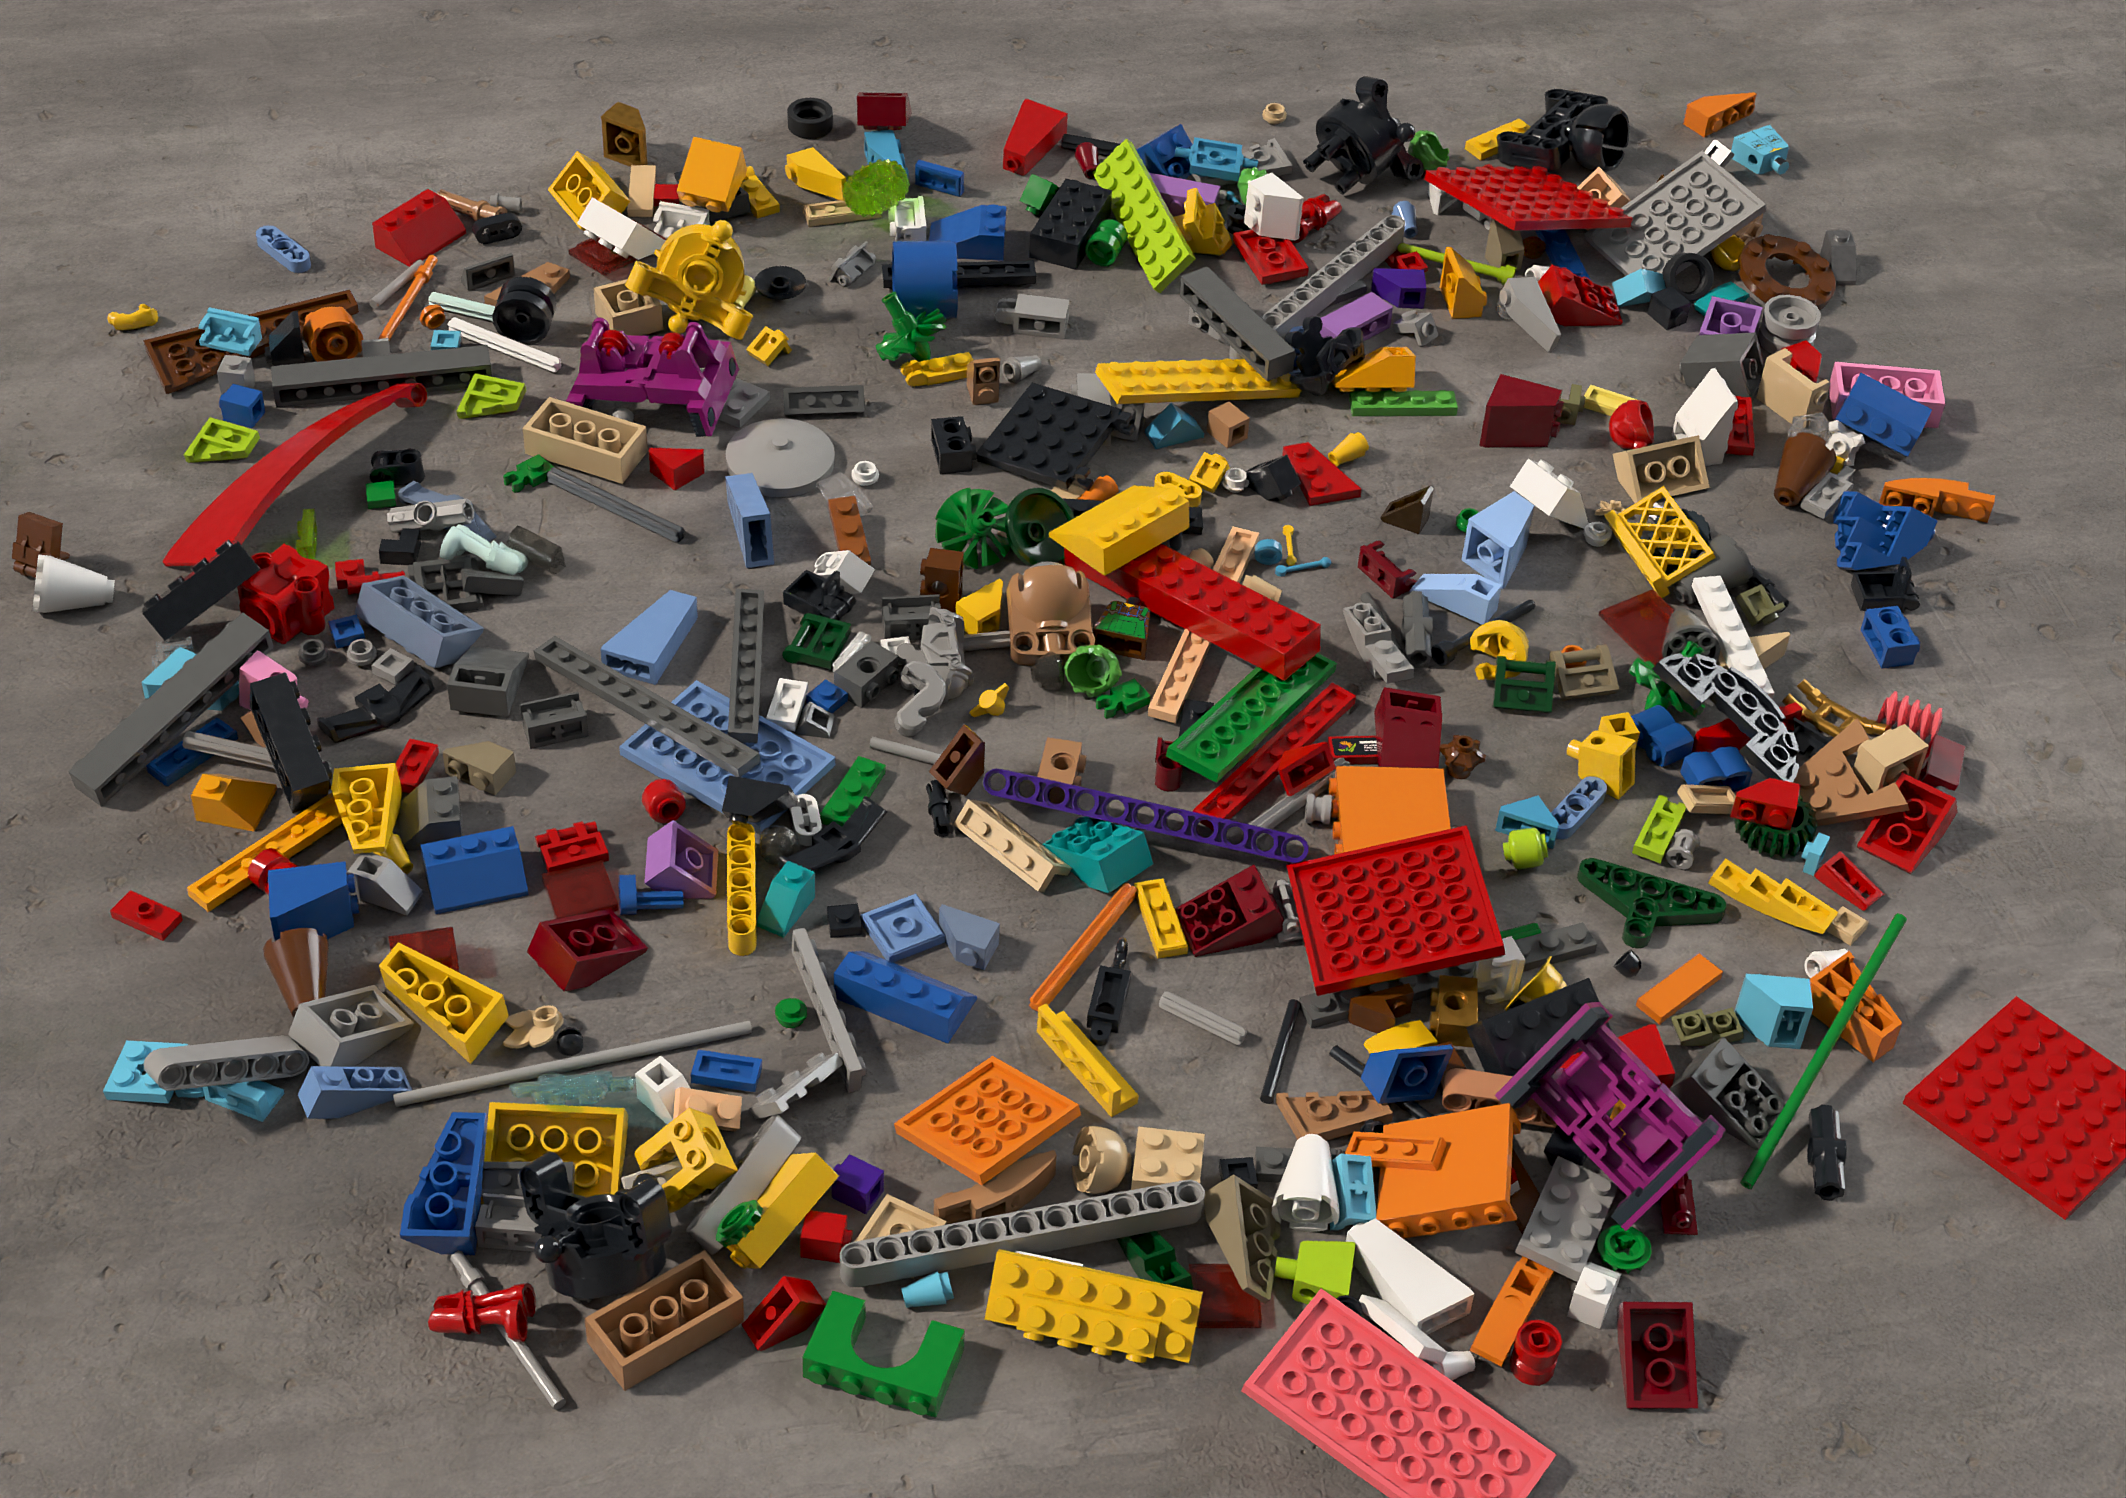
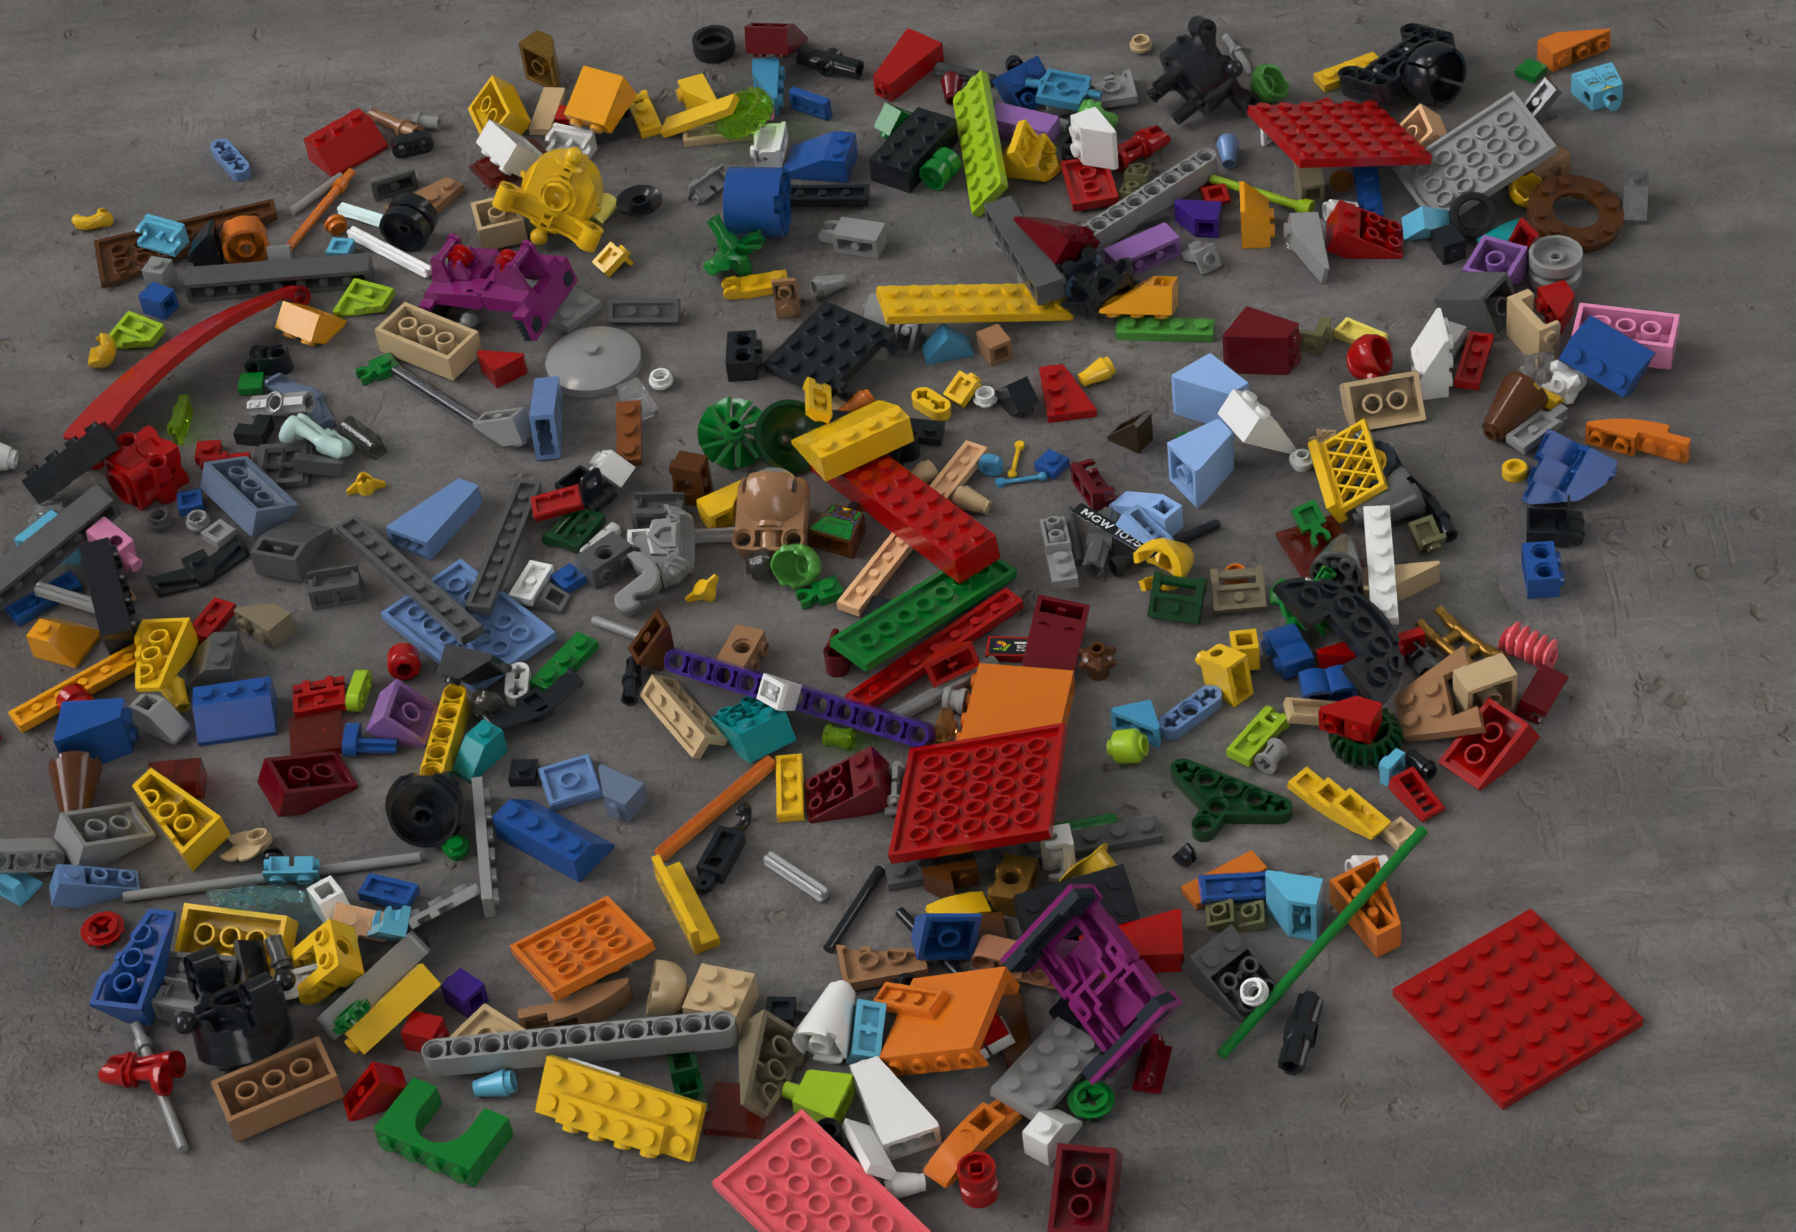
camera: 20 degrees right, 0 degrees up
(191, 465) = (104, 354): none -> yellow hair
(375, 1132) = (102, 921): none -> red gear
(432, 425) = (308, 323): none -> light orange slope
(553, 603) = (365, 485): none -> yellow piece
(591, 1168) = (250, 958): none -> black slope
(614, 1054) = (302, 872): none -> medium azure hinge
(618, 837) = (358, 690): none -> lime beam
(621, 1154) = (278, 953): none -> dark grey pin
(705, 530) = (505, 426): none -> light grey slope
(737, 954) = (435, 794): none -> black piece
(759, 1108) = (393, 925): none -> medium azure hinge
(794, 613) = (557, 503): none -> red plate
(825, 191) = (699, 115): none -> yellow tile
(946, 135) = (830, 62): none -> black piece
(1067, 488) = (817, 400): none -> yellow plate
(1126, 810) = (779, 693): none -> white slope
(1143, 135) = (1011, 62): none -> black hinge
(1200, 857) = (838, 737): none -> clear neon green bush
(1278, 311) = (1057, 238): none -> dark red slope
(1317, 251) = (1134, 178): none -> olive slope
(1318, 838) = (945, 726): none -> clear orange plate
(1331, 547) = (1052, 463): none -> blue plate
(1429, 613) = (1106, 525): none -> black sticker
(1462, 610) = (1141, 525): none -> light blue slope
(1482, 465) = (1203, 388): none -> light blue slope
(1637, 595) = (1310, 520): none -> green plate
(1684, 136) = (1531, 70): none -> green tile
(1703, 994) = (1235, 886): none -> blue tile
(1755, 293) = (1524, 234): none -> red slope
(1768, 1101) = (1247, 989): none -> white plate
(1820, 536) = (1514, 470): none -> yellow tile
(1851, 851) = (1425, 767): none -> black pin

